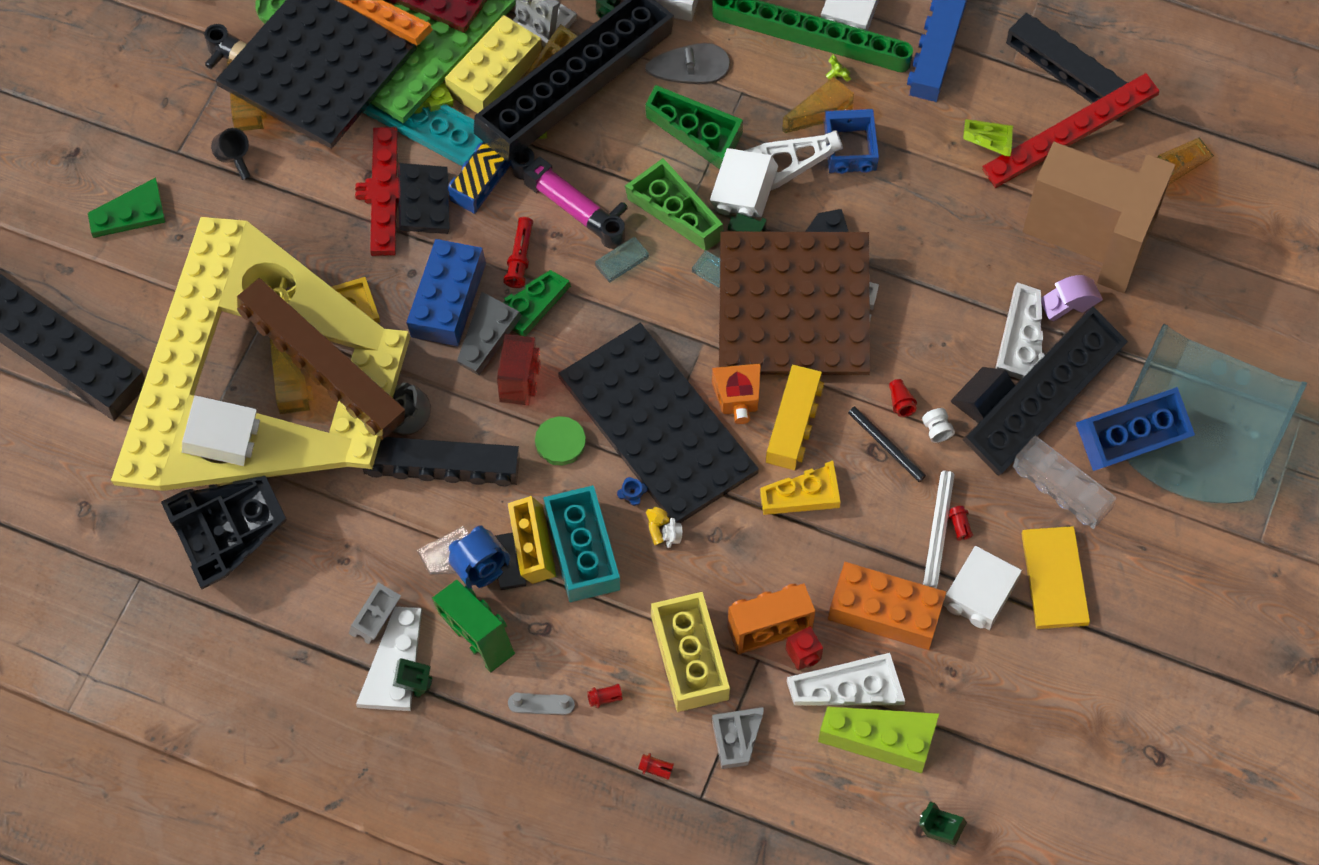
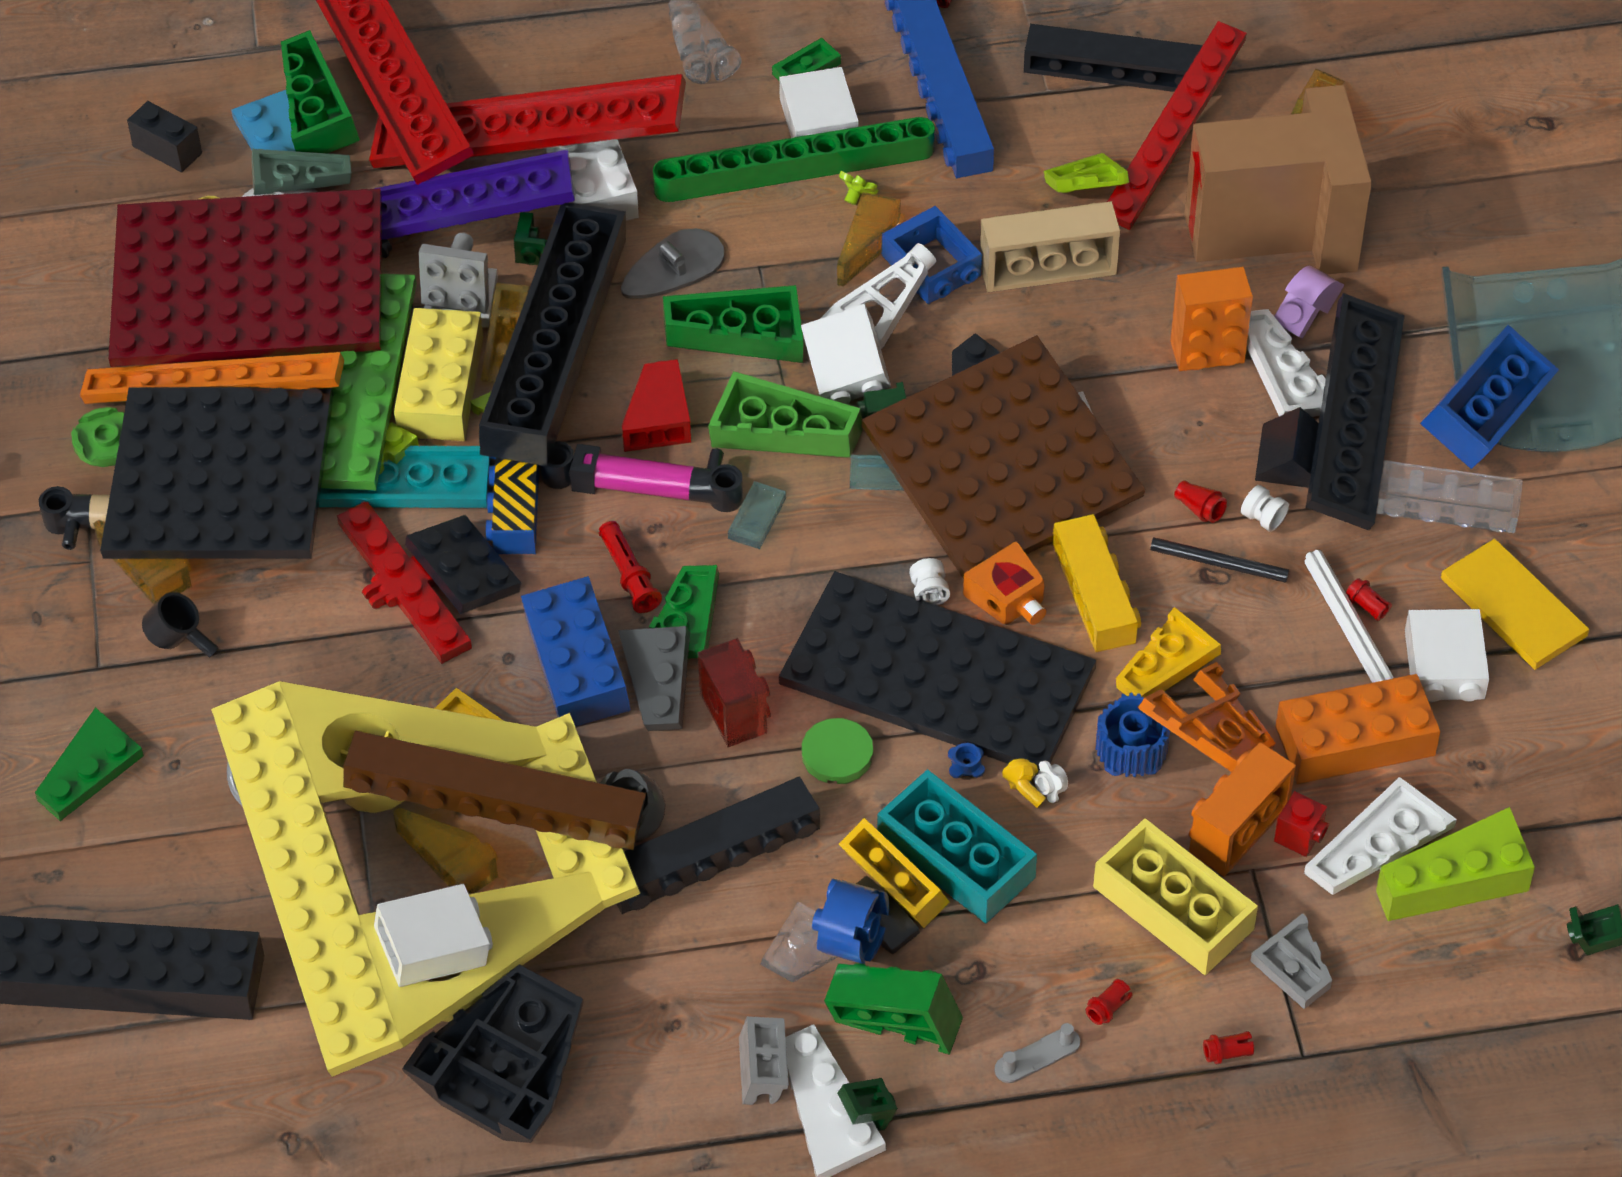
camera: 30 degrees left, 10 degrees down
(608, 157) = (657, 409): none -> red slope
(692, 360) = (929, 581): none -> white wheel
(742, 544) = (1130, 739): none -> blue brick
(797, 559) = (1217, 730): none -> orange wing
(925, 174) = (1049, 246): none -> tan brick
(988, 279) = (1211, 318): none -> orange brick

